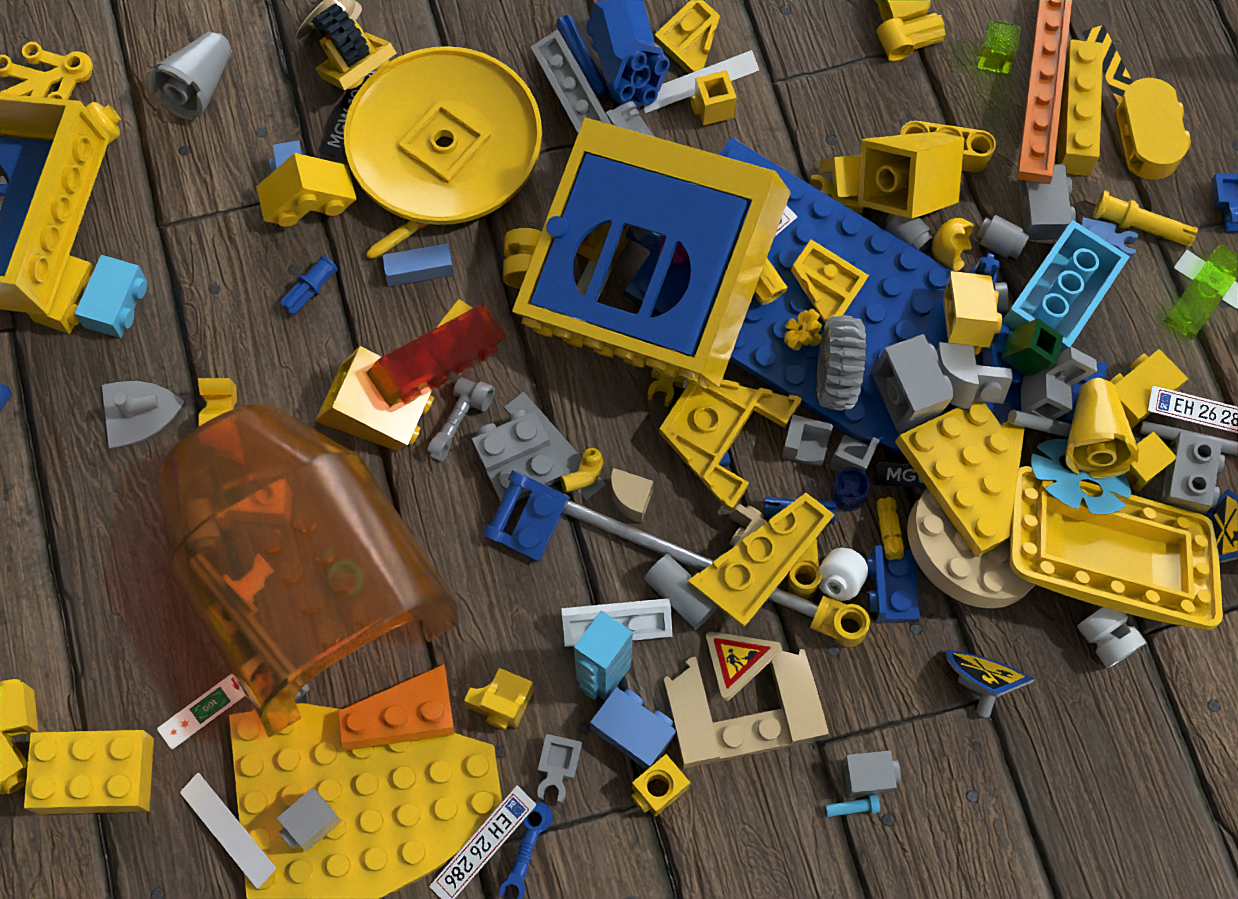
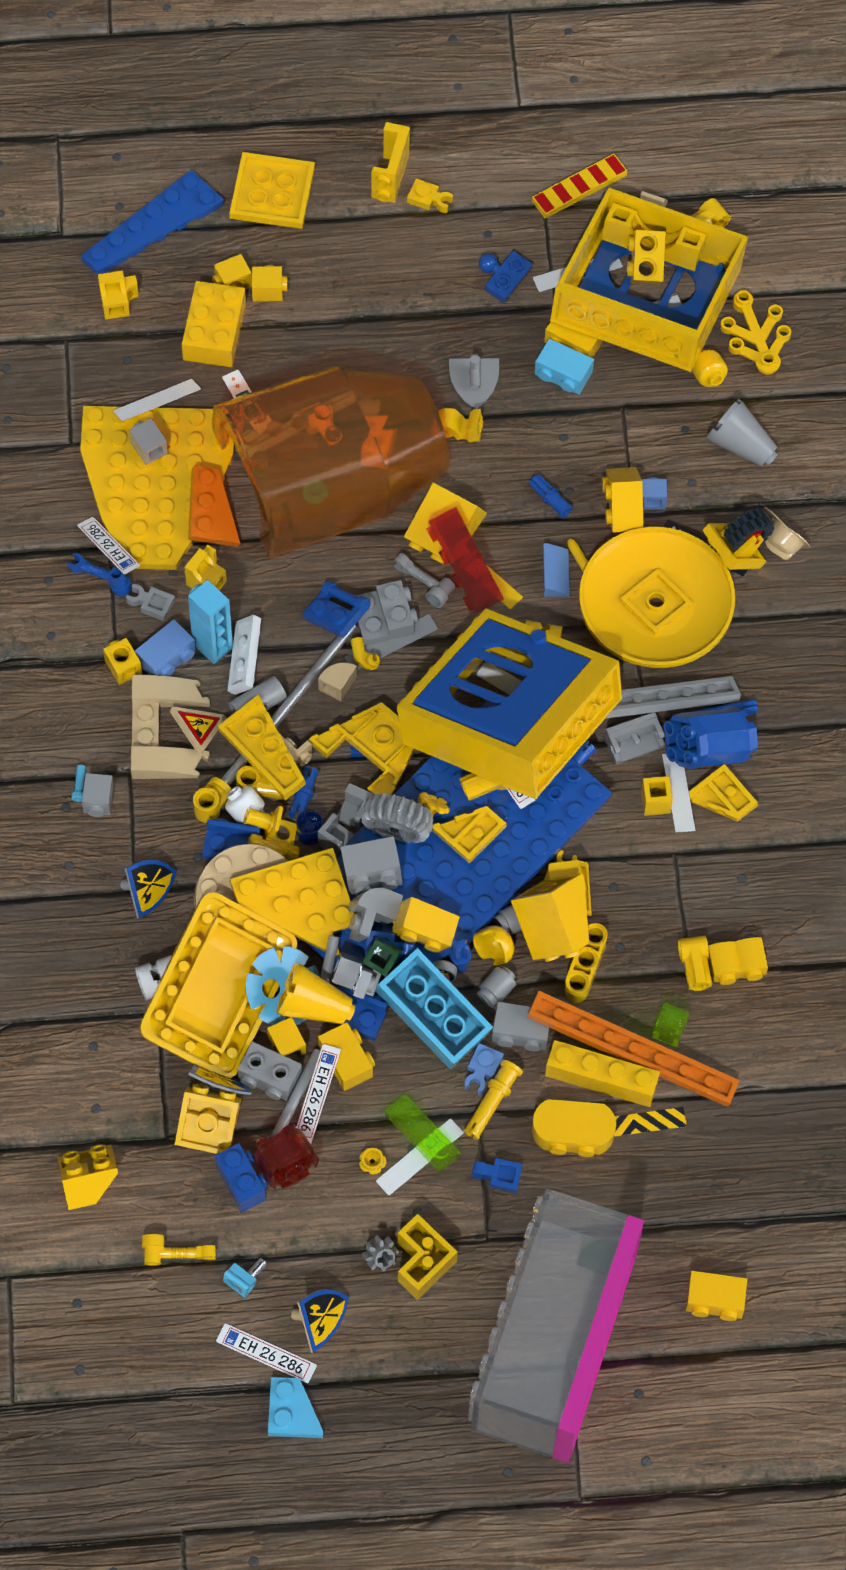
camera: 100 degrees right, 5 degrees down
(865, 531) = (271, 823): none -> yellow bracket

